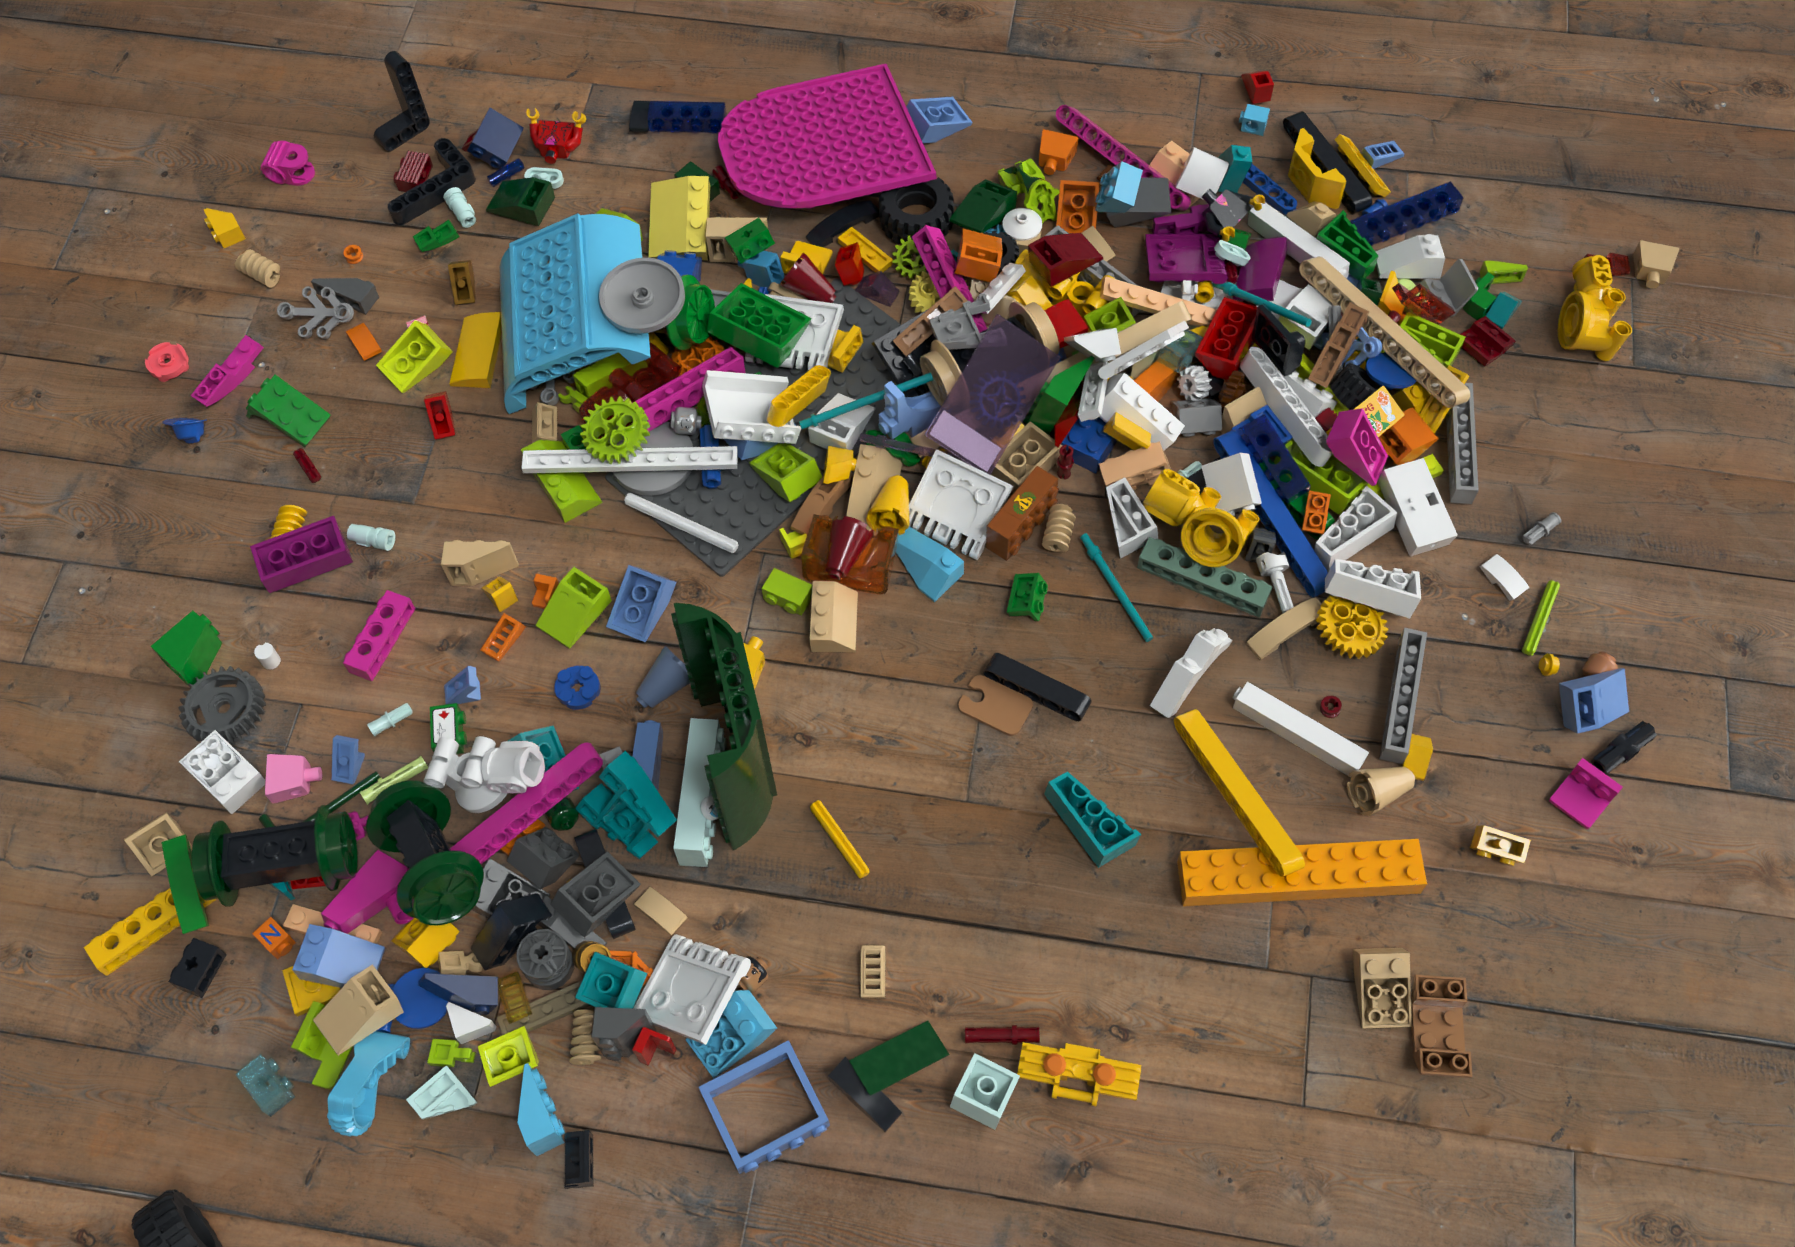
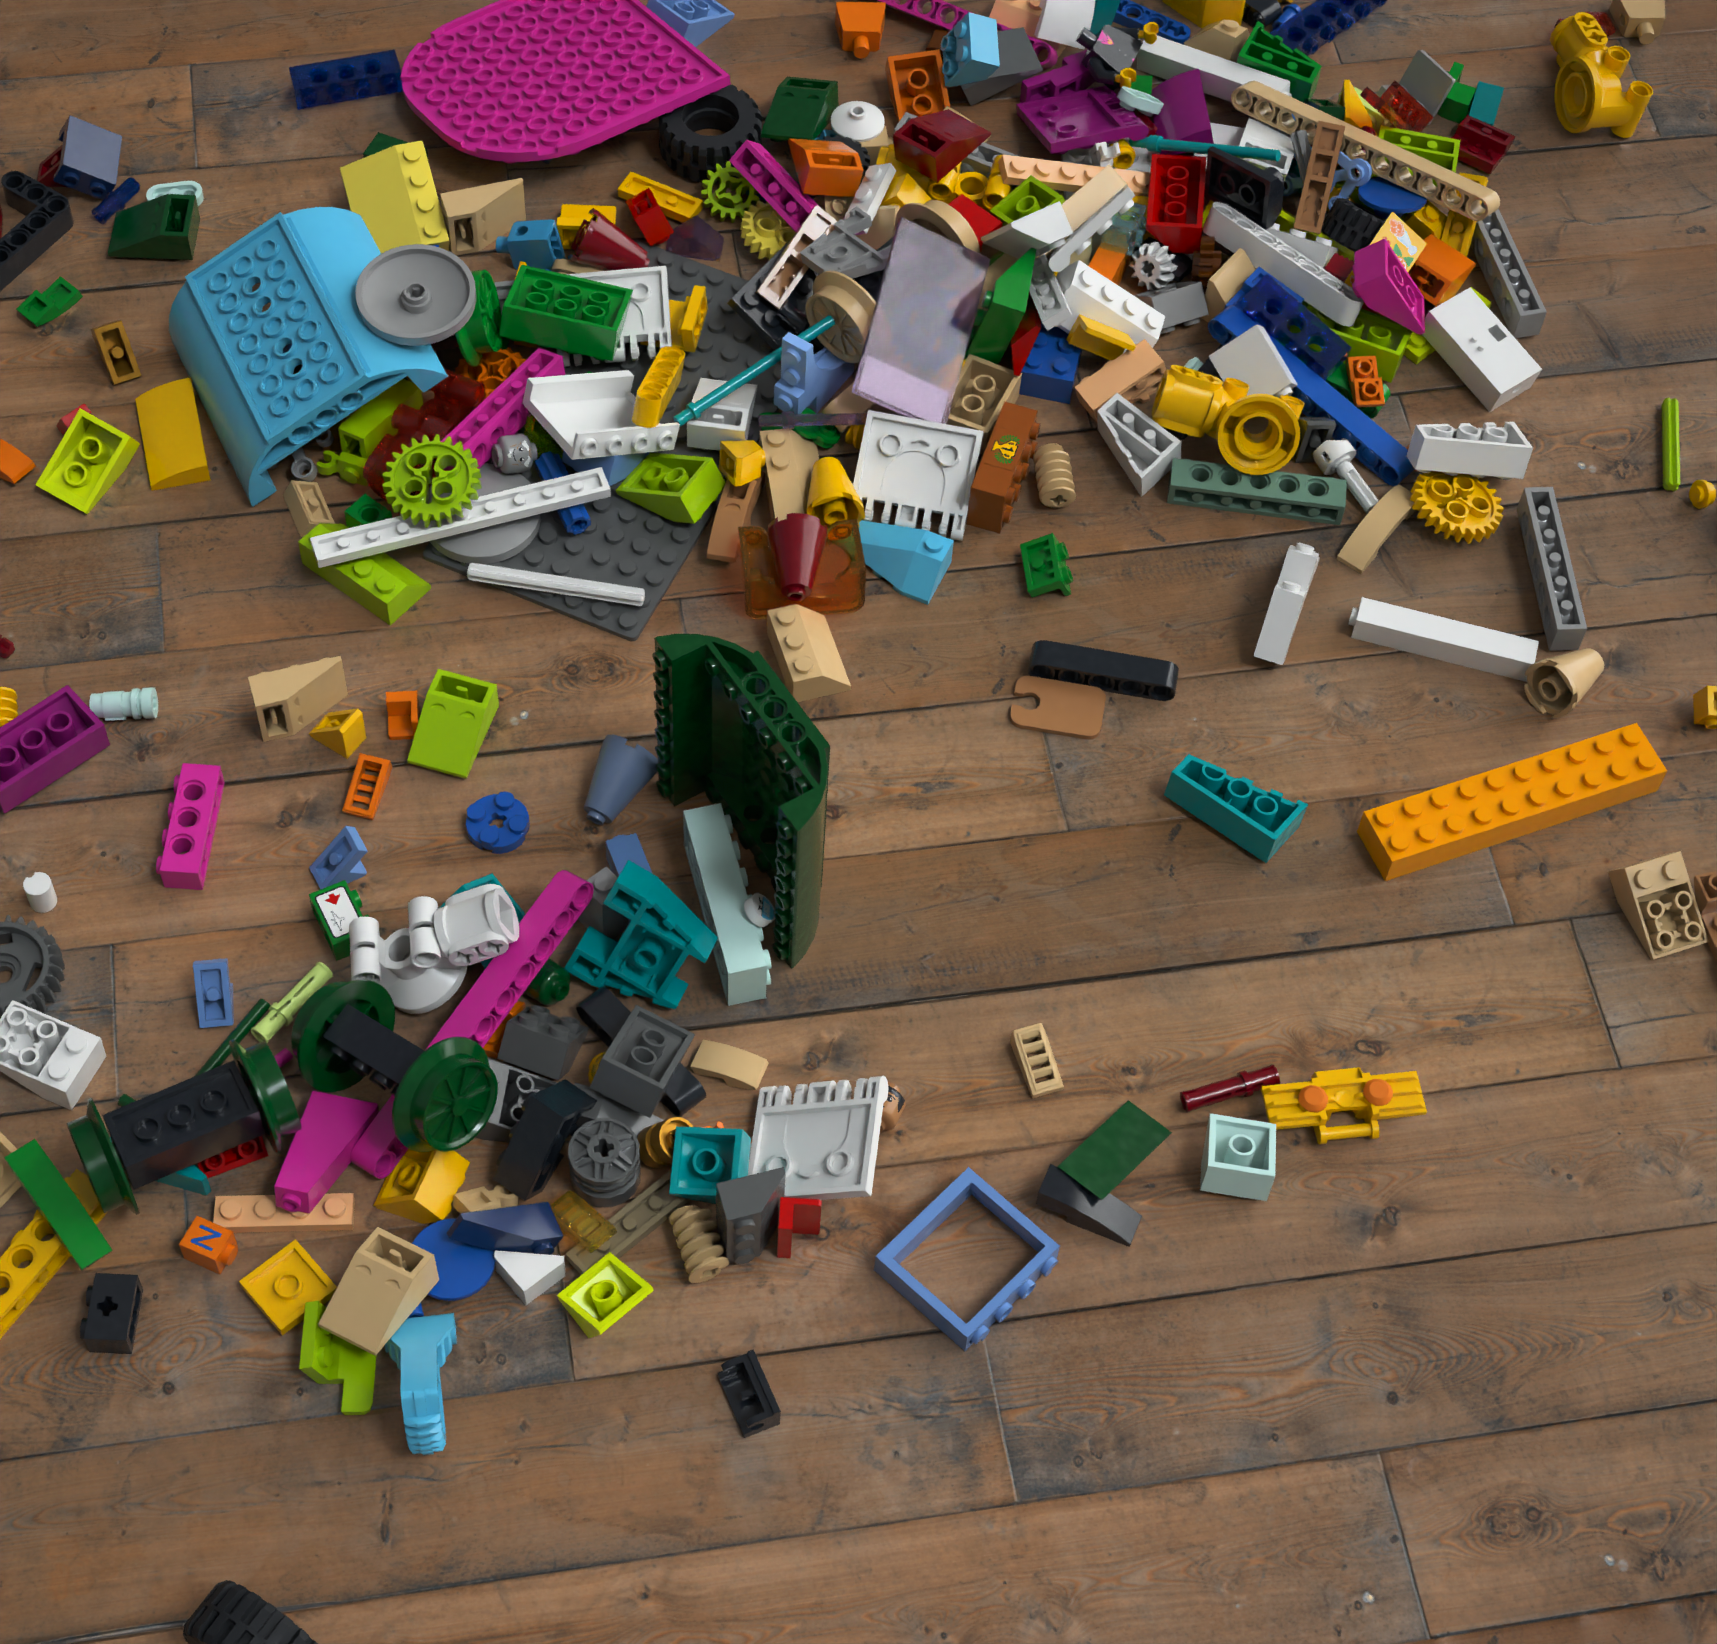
camera: 25 degrees left, 5 degrees down
(254, 1079) = (287, 1446): clear light blue brick -> none
(289, 777) = (141, 1036): bright pink torso -> none
(334, 956) = (312, 1240): medium blue slope -> none
(389, 719) = (251, 929): light aqua axle -> none
(440, 414) = (157, 527): red slope -> none
(440, 1095) = (529, 1373): light aqua wing -> none
(447, 1052) = (512, 1318): lime plate -> none
(457, 202) = (75, 261): light aqua axle -> none
(535, 1117) = (684, 1360): medium azure slope -> none
(554, 137) = (170, 141): red torso -> none
(639, 116) = (279, 91): black slope -> none
(640, 603) = (541, 696): medium blue slope -> none
(725, 182) = (438, 152): dark red pin -> none
(737, 1033) = (899, 1182): medium azure slope -> none
(749, 240) = (509, 211): green brick -> none
(787, 592) = (737, 627): lime brick -> none
(793, 542) = (716, 575): neon yellow panel -> none
(839, 839) = (927, 916): yellow axle -> none
(840, 221) = (612, 168): black slope -> none
(1028, 179) = (844, 65): lime hips -> none
(1065, 462) = (1031, 392): dark red pin -> none
(1095, 554) = (1110, 497): teal bar -> none
(1239, 793) = (1406, 725): yellow beam -> none
(1337, 706) = (1468, 613): dark red bush -> none
(1356, 528) = (1419, 389): white wedge -> none
(1412, 258) = (1364, 60): white slope -> none
(1419, 756) = (1598, 634): yellow slope -> none
(1503, 271) = (1467, 54): lime slope -> none
(1506, 577) = (1606, 403): white slope -> none
(1541, 528) = (1631, 342): light grey axle -> none

